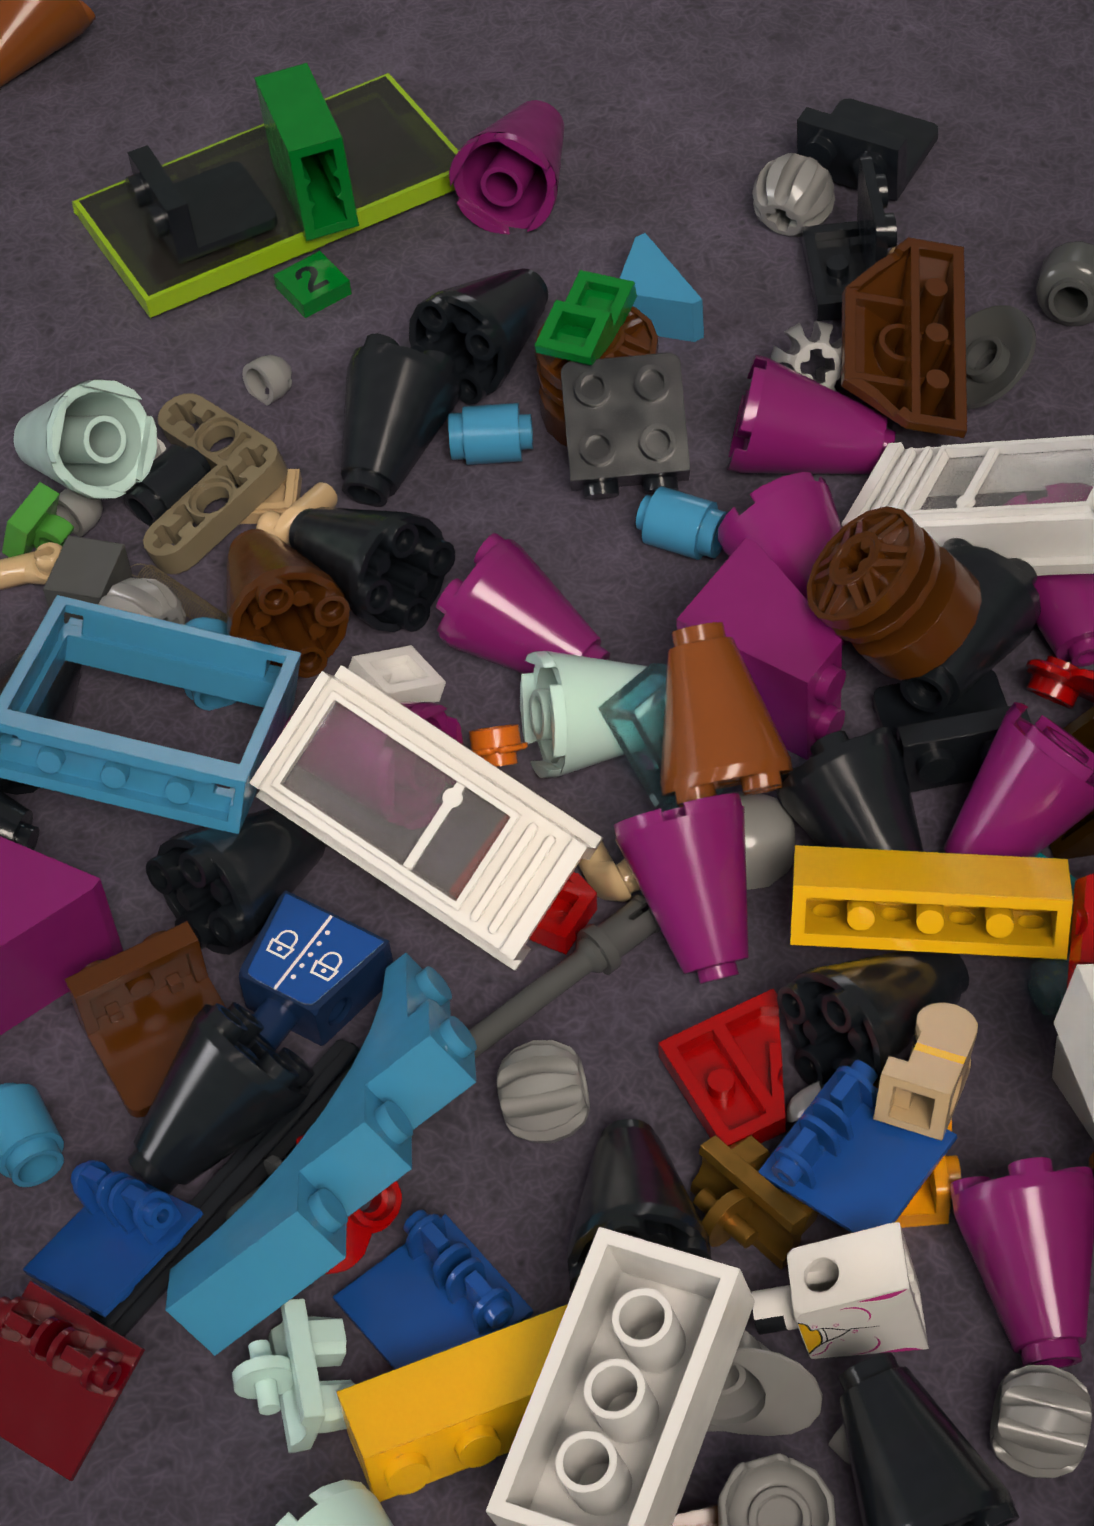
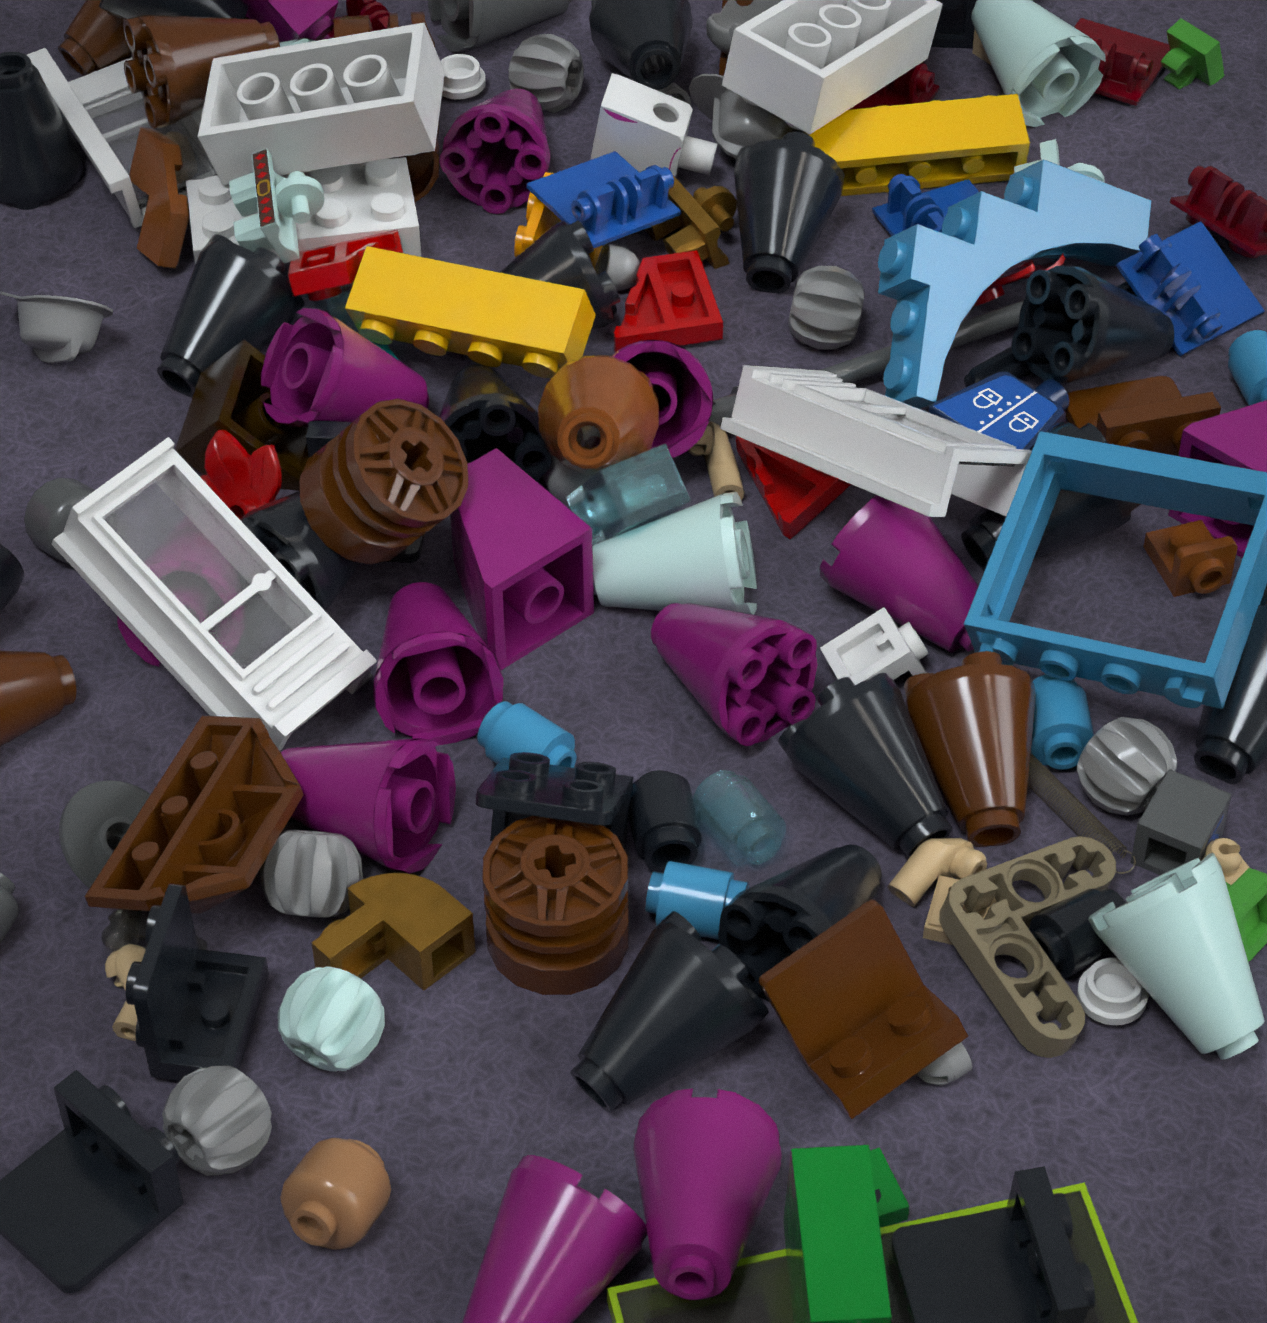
camera: 170 degrees left, 5 degrees down
(93, 853) = (1191, 558): none -> dark orange bracket
(318, 345) = (860, 1010): none -> reddish brown bracket
(417, 203) = (703, 1185): none -> magenta cone
(475, 507) = (739, 818): none -> clear light blue brick
(497, 744) = (782, 565): orange plate -> none
(540, 490) = (664, 820): none -> black brick
(587, 319) = (567, 858): green slope -> none
(663, 292) = (451, 1029): dark azure slope -> none
(685, 178) = (338, 1191): none -> medium nougat head
(719, 354) = (400, 921): none -> pearl gold brick
(741, 268) = (331, 1019): none -> light aqua piece
(926, 1089) = (528, 201): tan leg -> none

